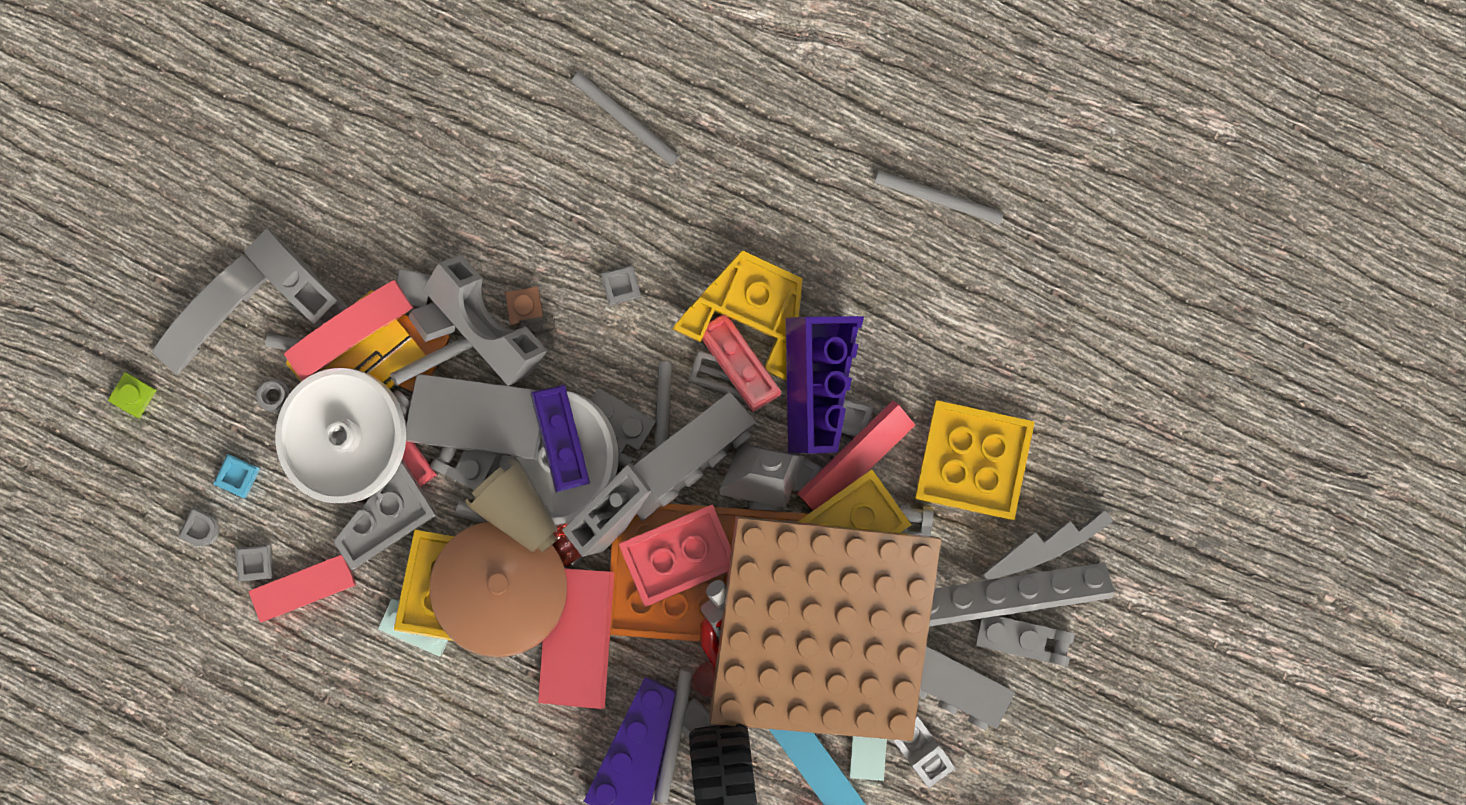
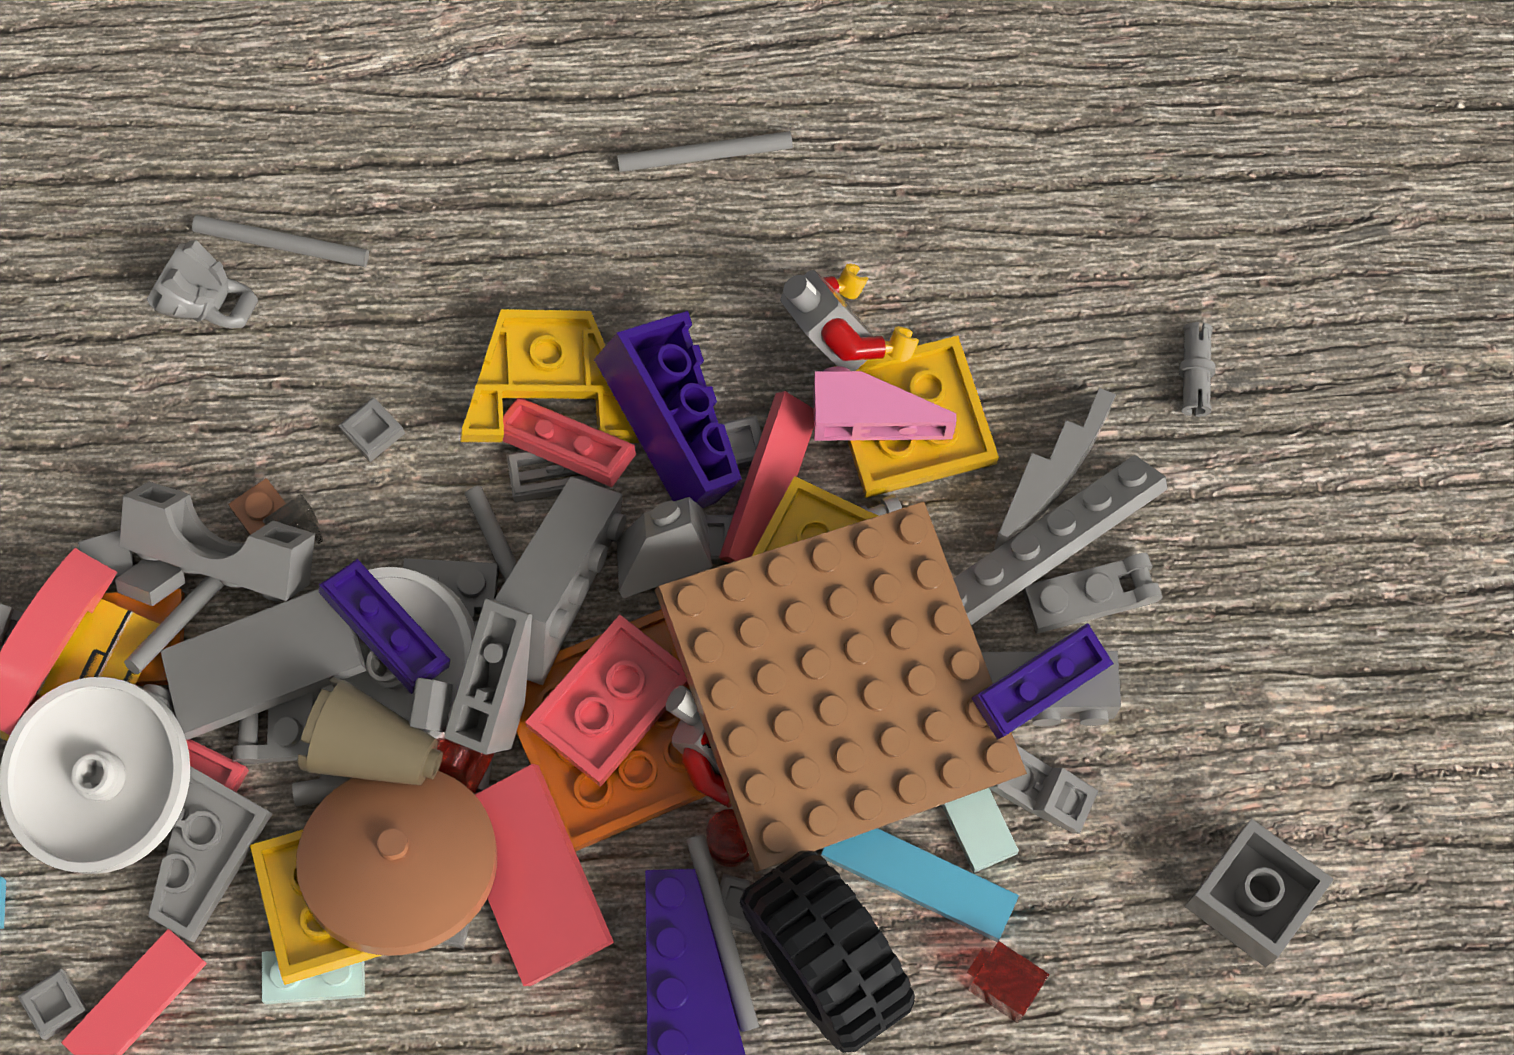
camera: 30 degrees left, 15 degrees down
(552, 129) = (197, 288): none -> light grey piece
(563, 506) = (430, 705): none -> light grey tile
(942, 444) = (866, 408): none -> bright pink slope
(953, 375) = (834, 325): none -> torso
(953, 691) = (1042, 681): none -> dark purple tile
(1181, 525) = (1197, 369): none -> light grey pin

